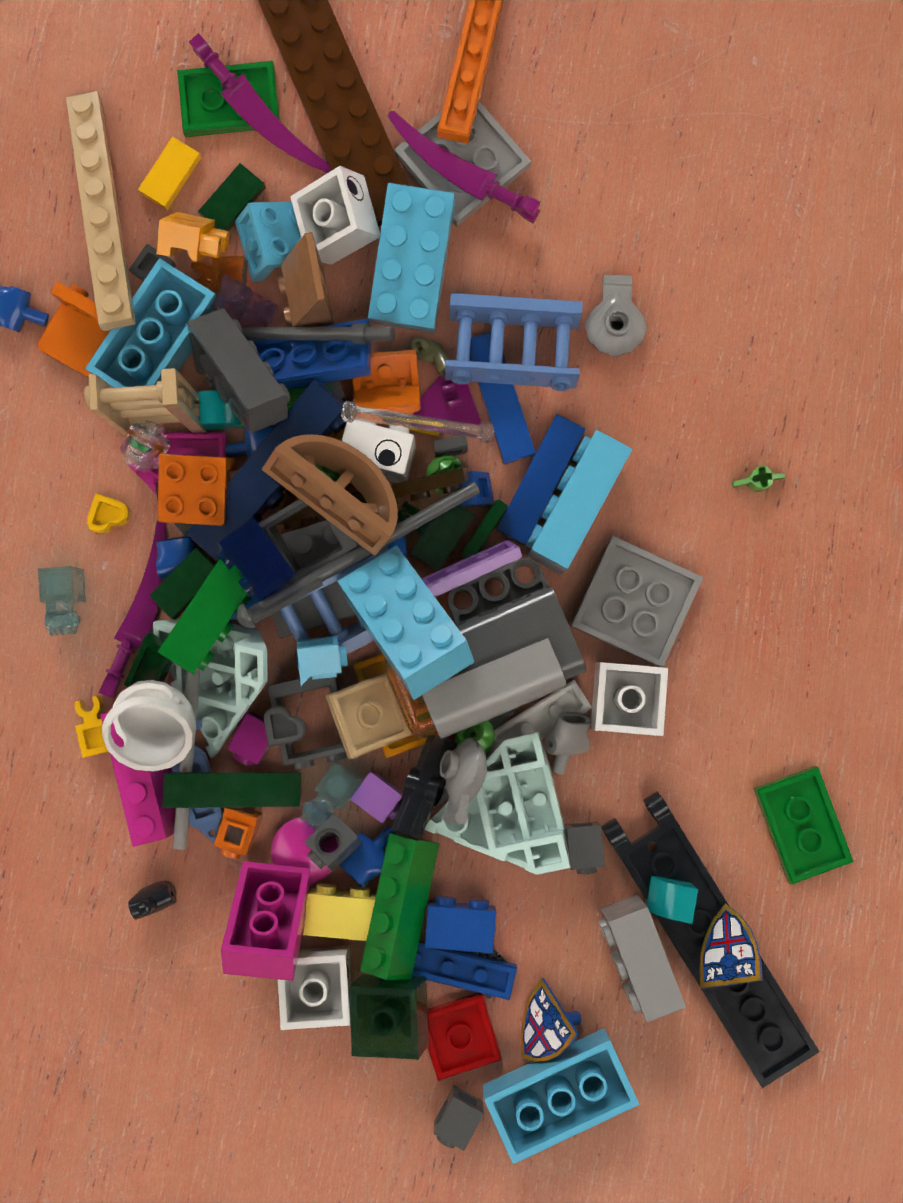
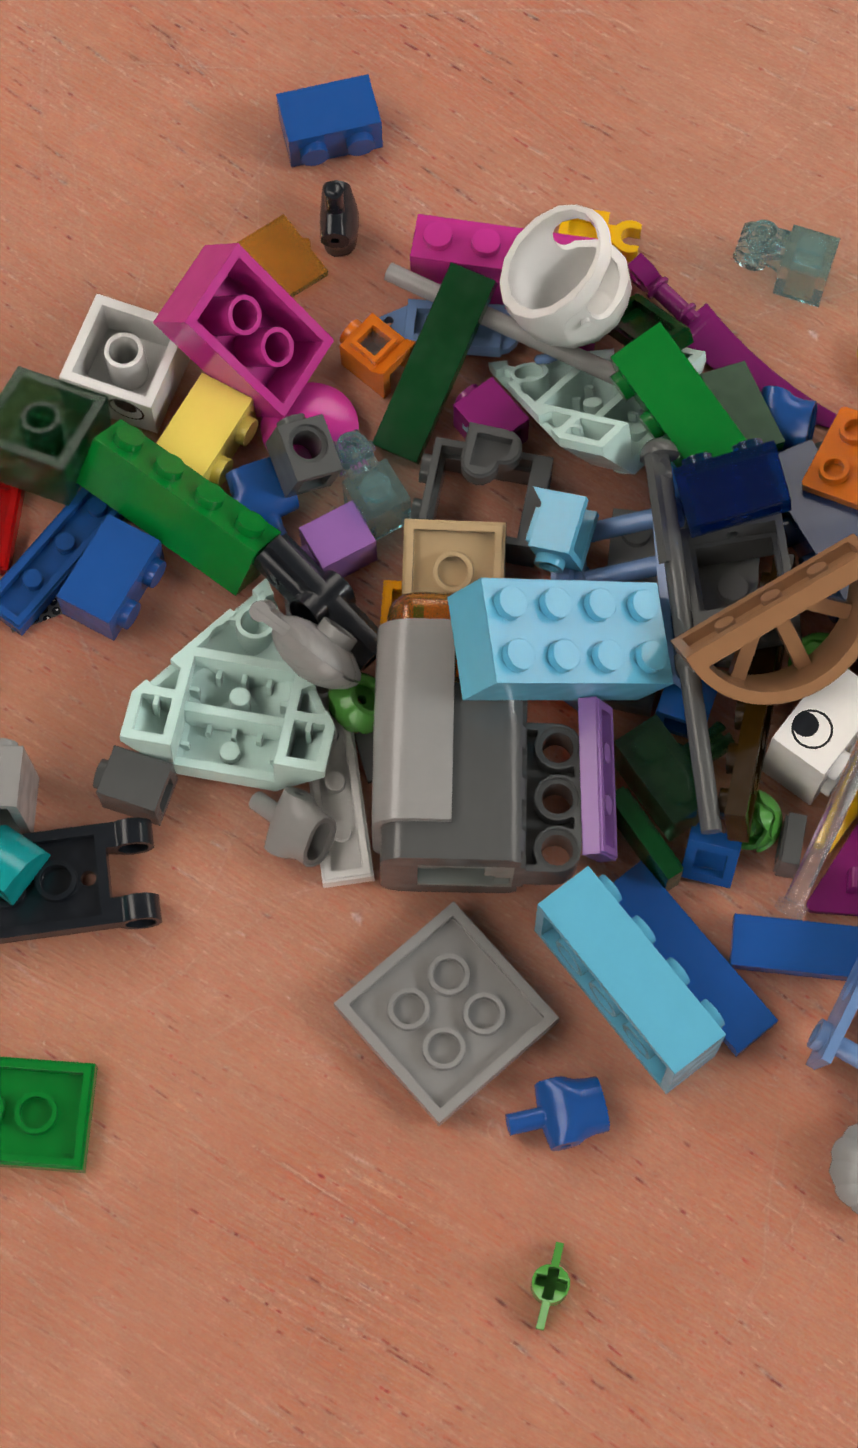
camera: 115 degrees right, 15 degrees down
(82, 938) = (330, 121): none -> blue brick
(198, 928) = (285, 255): none -> clear yellow piece
(629, 699) = (311, 930): white brick -> none
(662, 510) = (565, 1111): none -> blue piece

